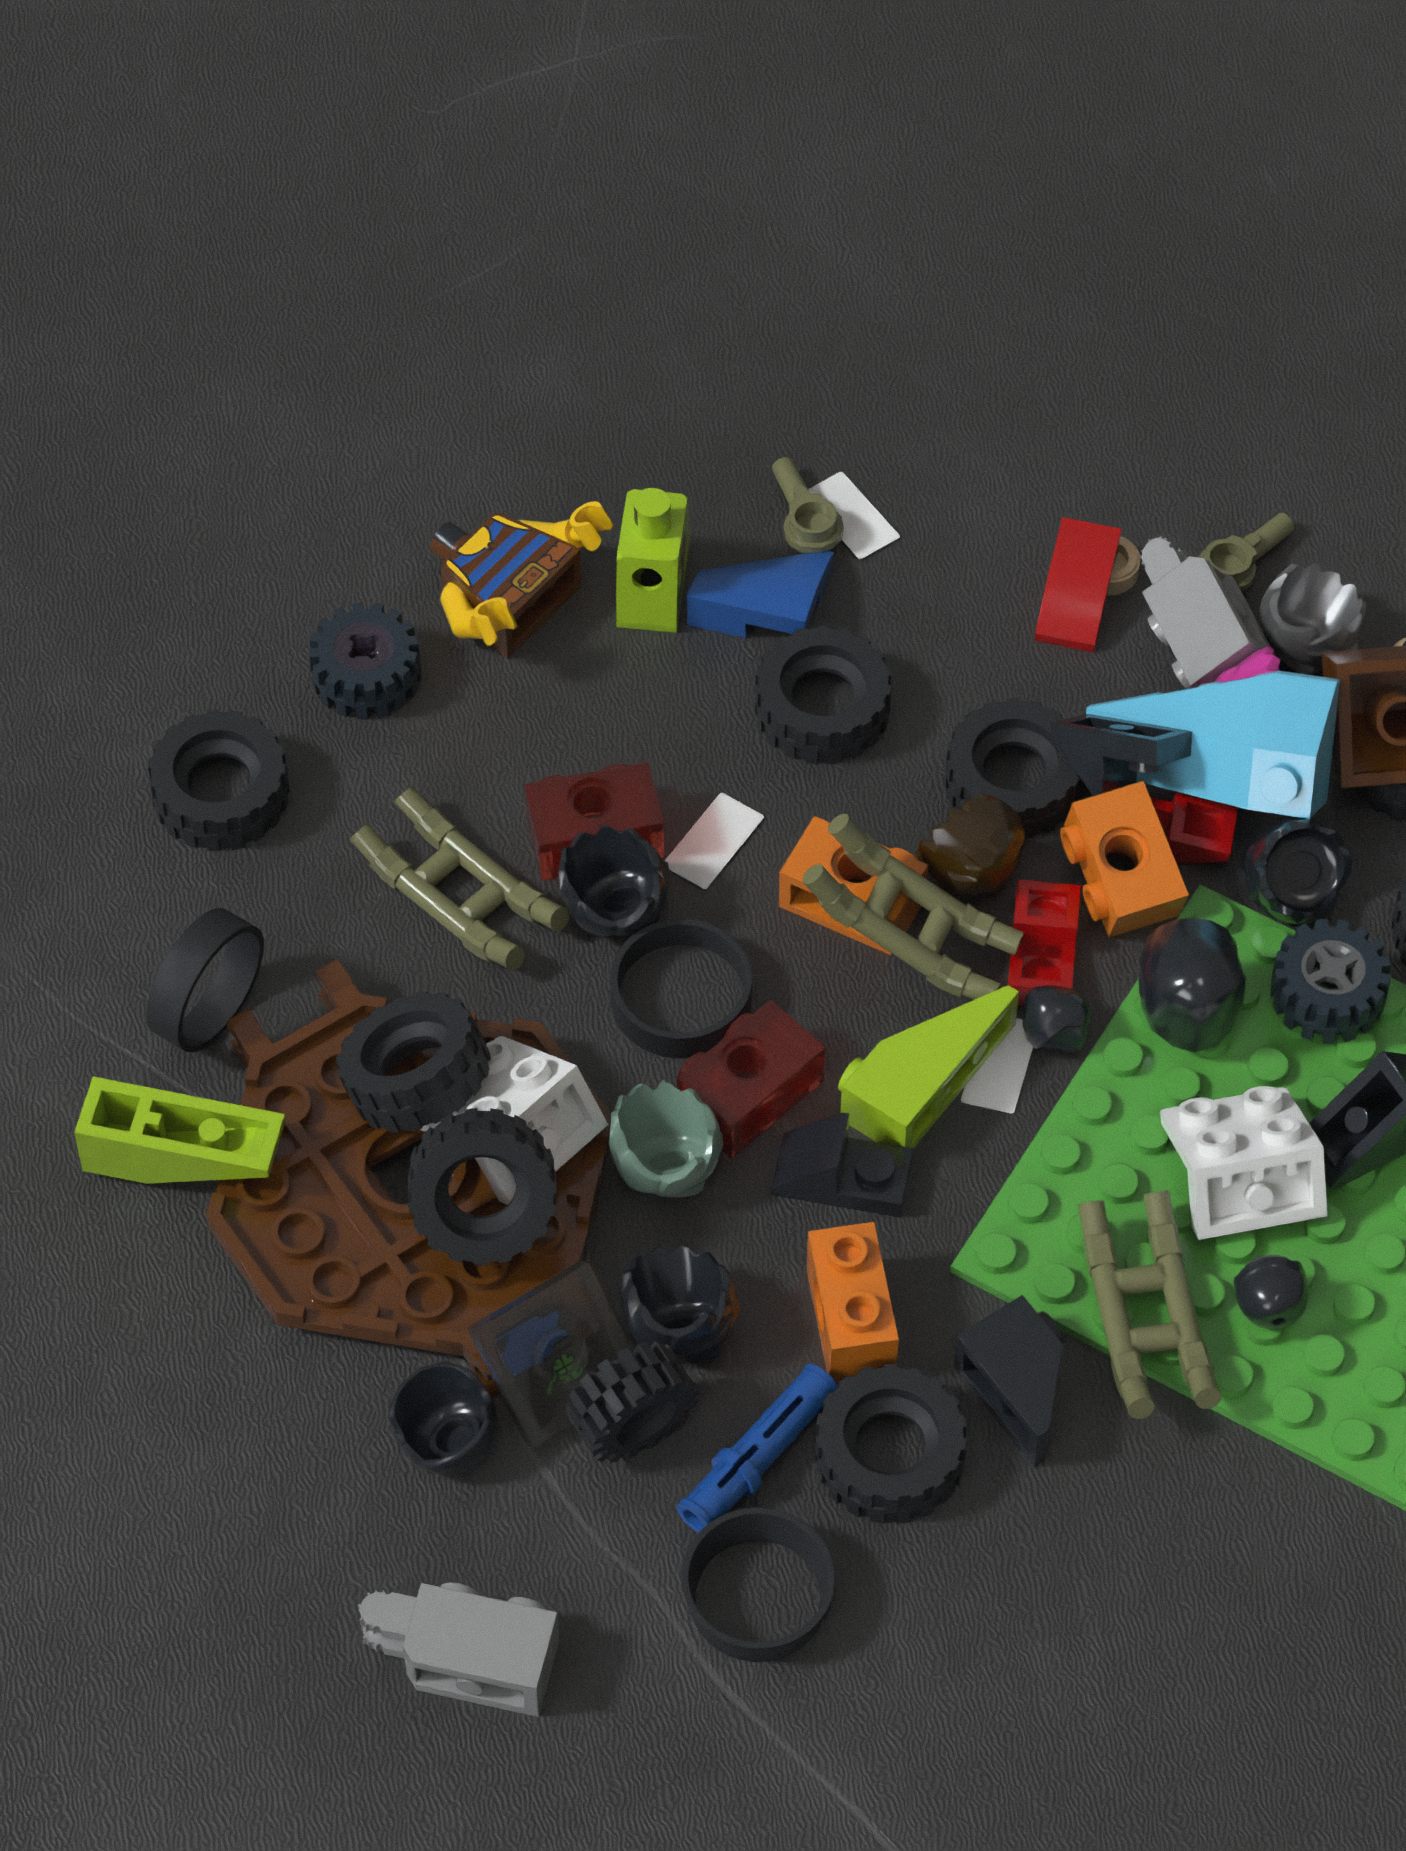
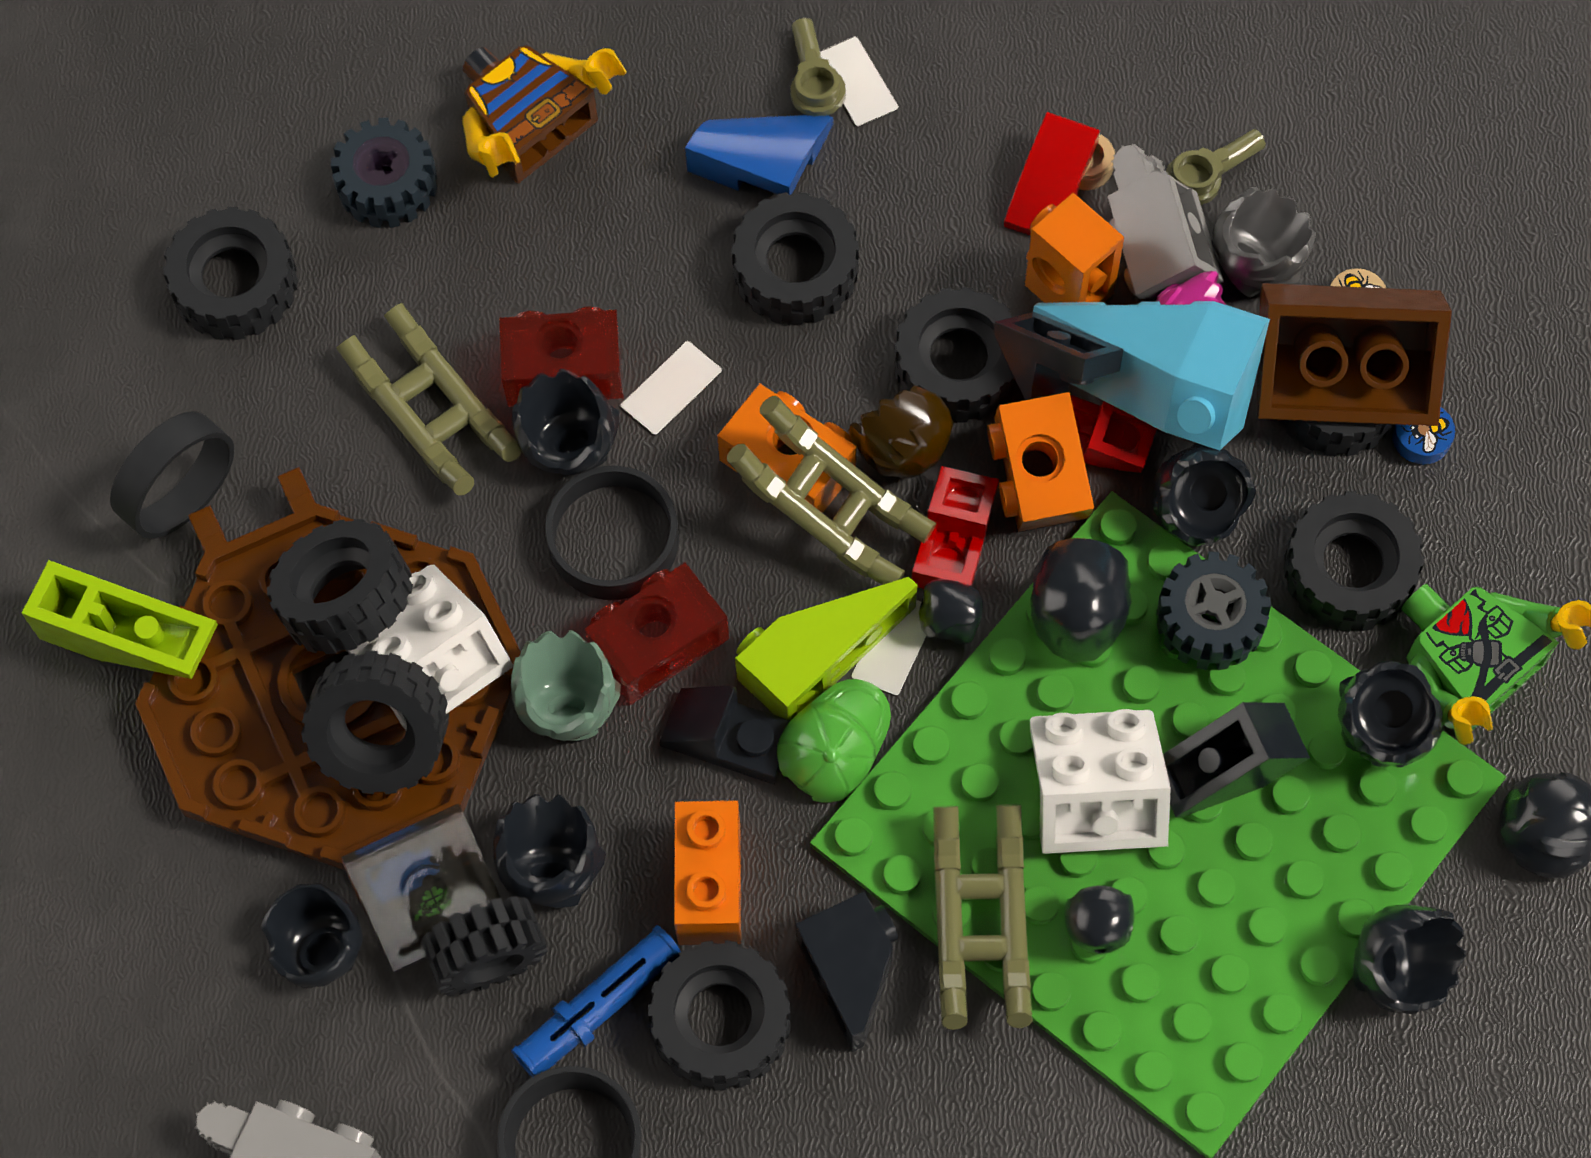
camera: 10 degrees right, 10 degrees up
(656, 538) = (669, 91): lime torso -> none
(958, 1161) = (835, 740): none -> bright green piece
(1118, 649) = (1072, 254): none -> orange brick

